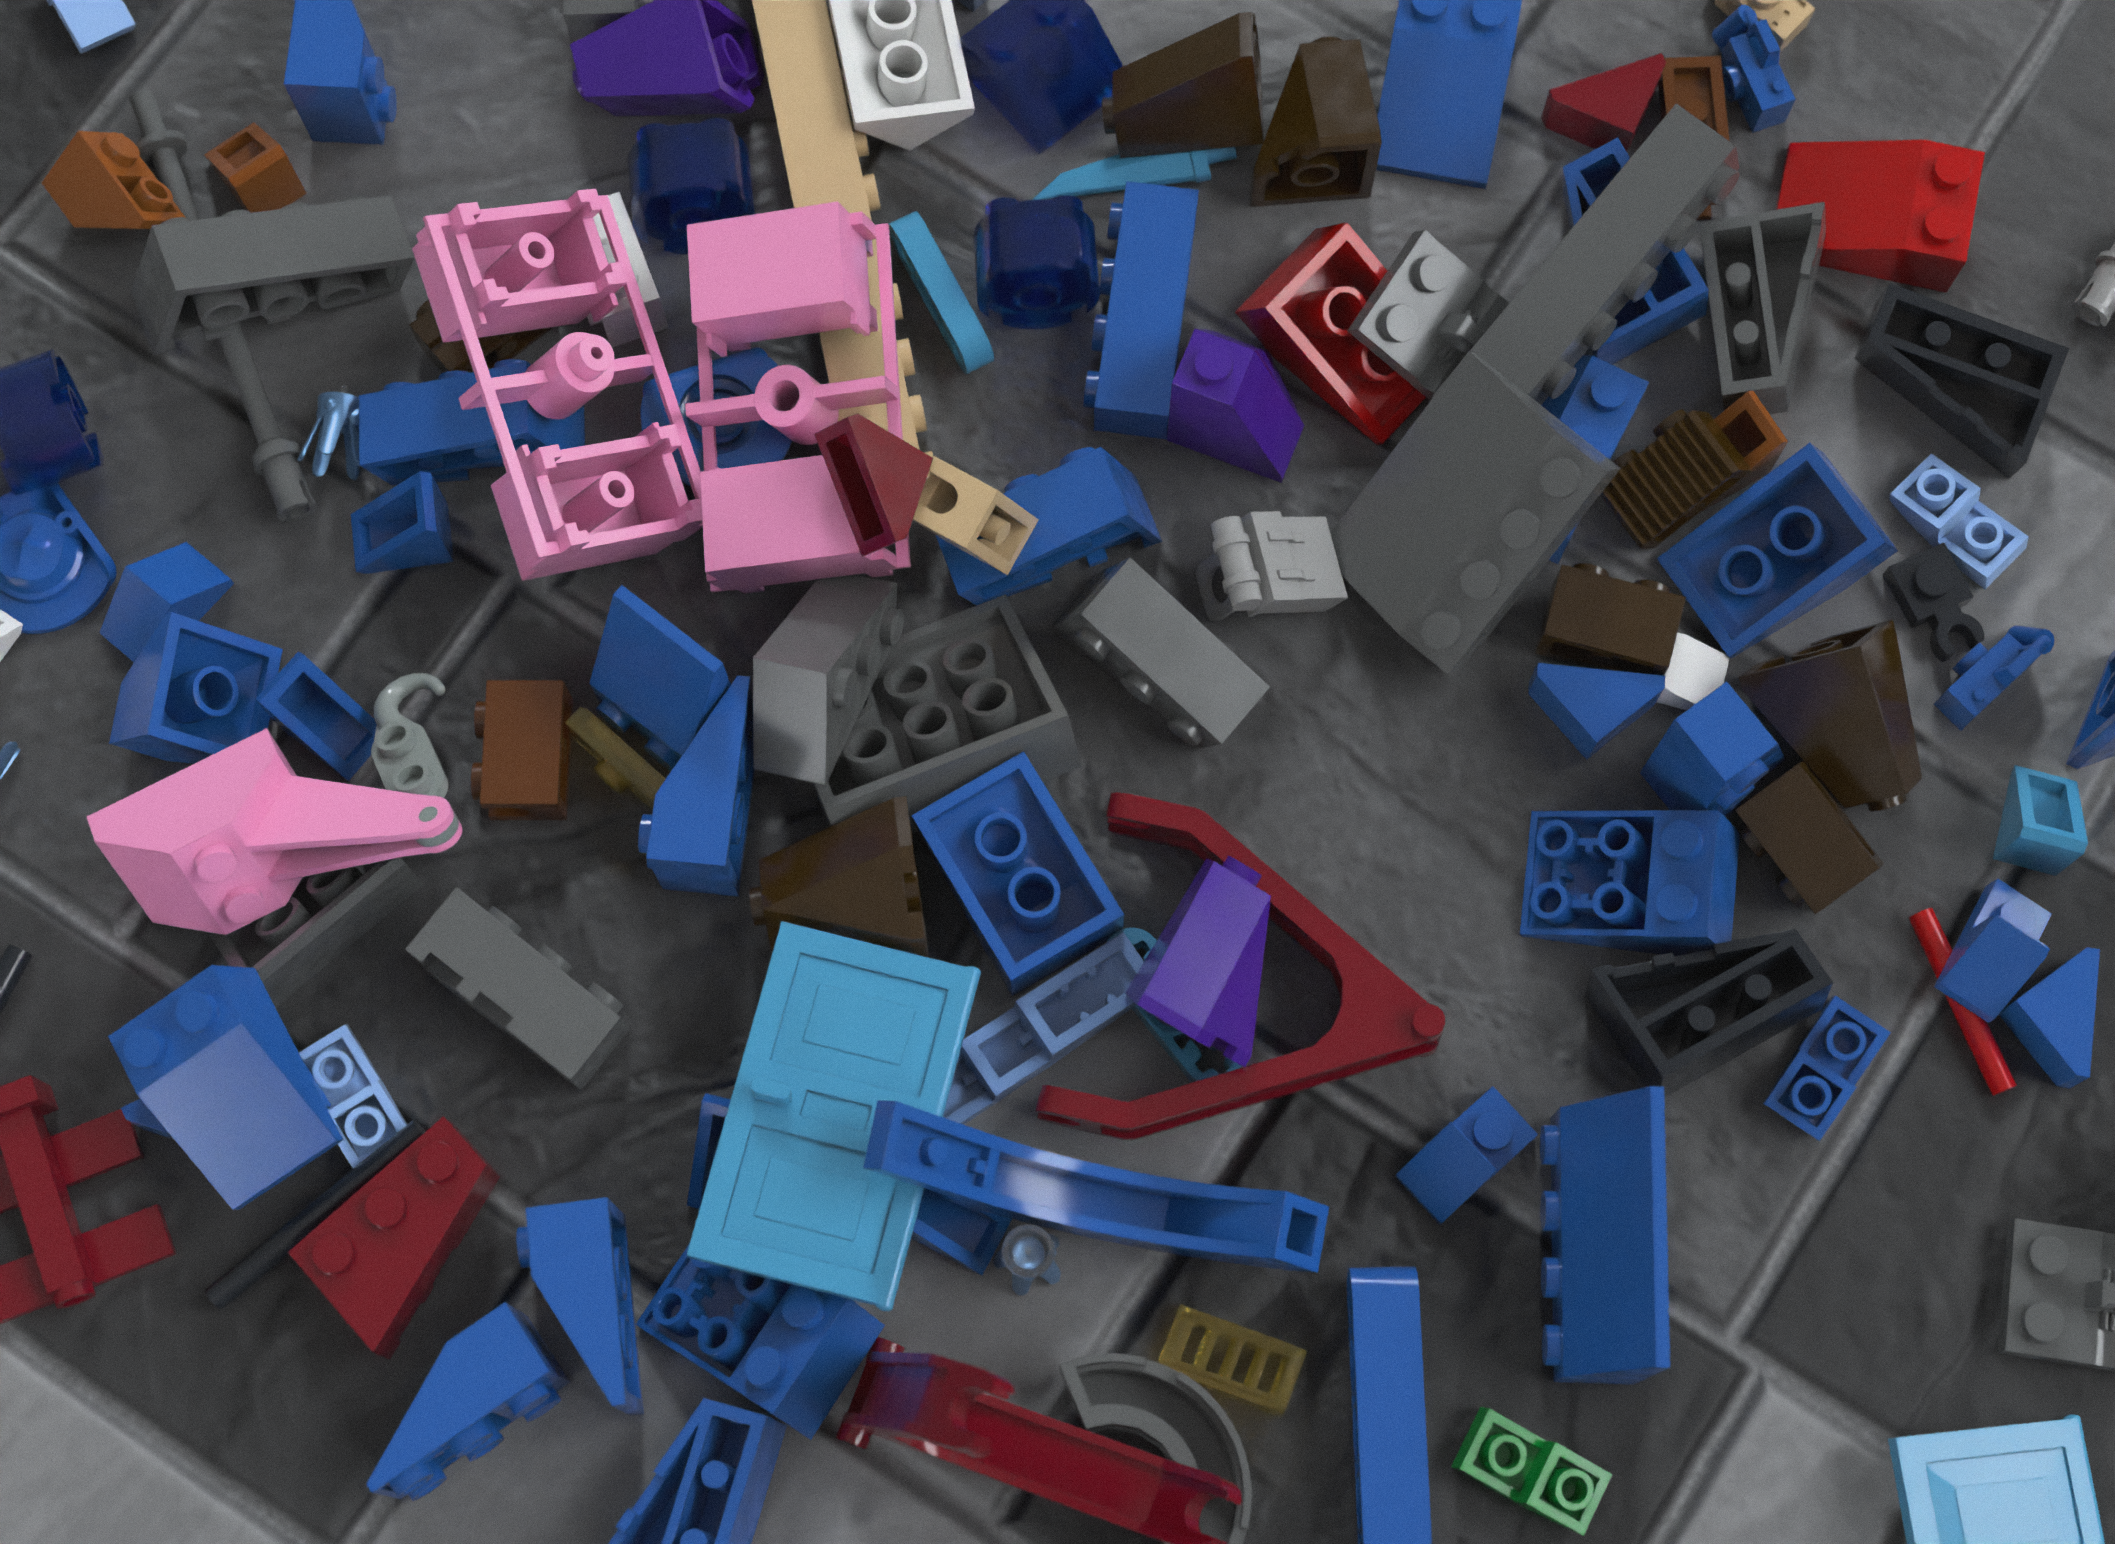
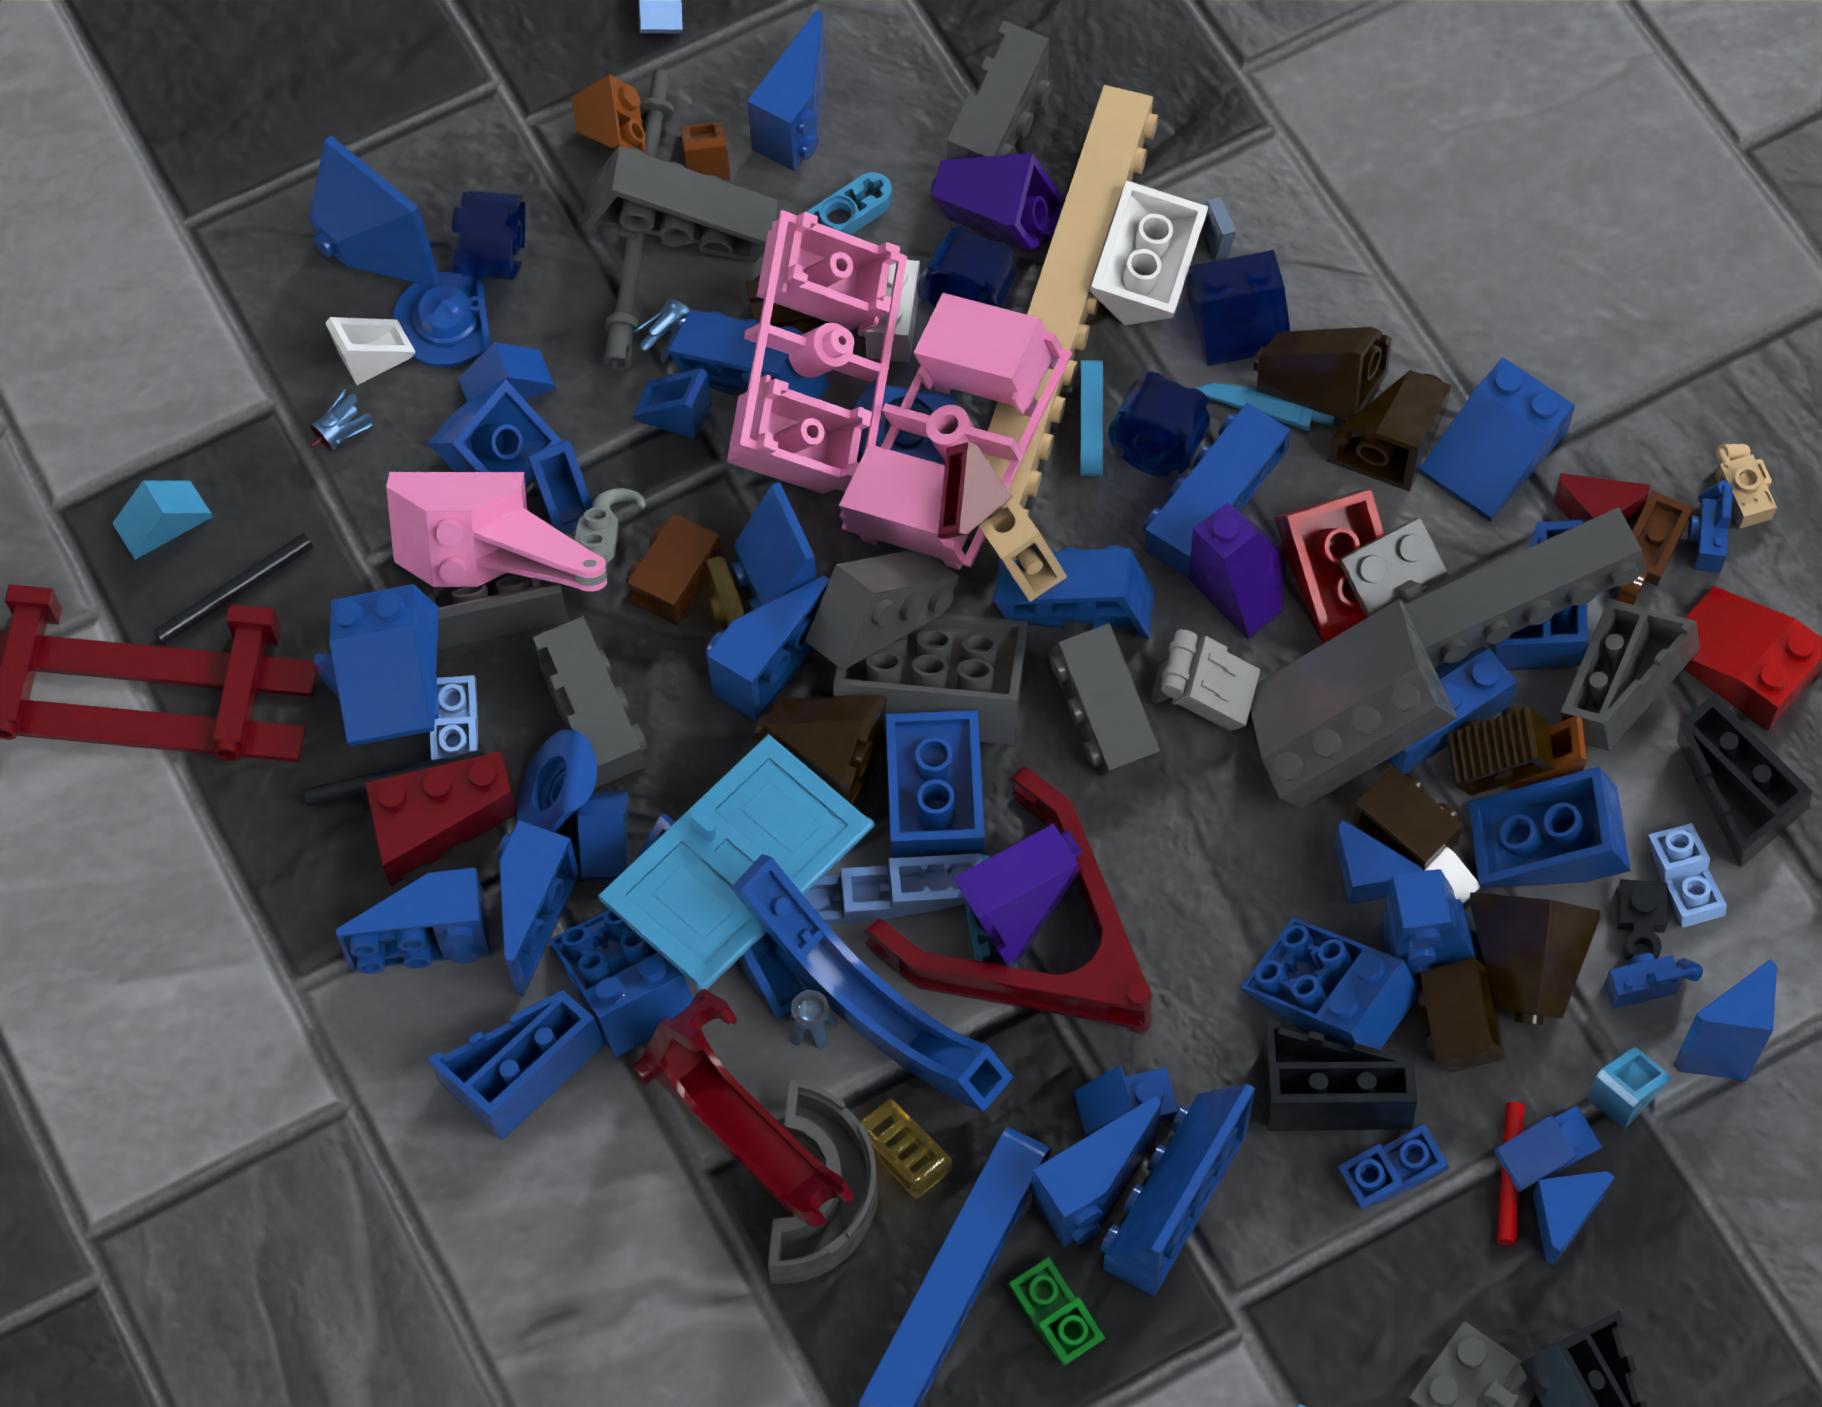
camera: 30 degrees right, 10 degrees down
(475, 151) = (853, 195): none -> dark azure beam
(537, 1122) = (557, 780): none -> blue hat
(629, 1147) = (604, 835): none -> blue slope
(1498, 1285) = (1088, 1178): none -> blue slope

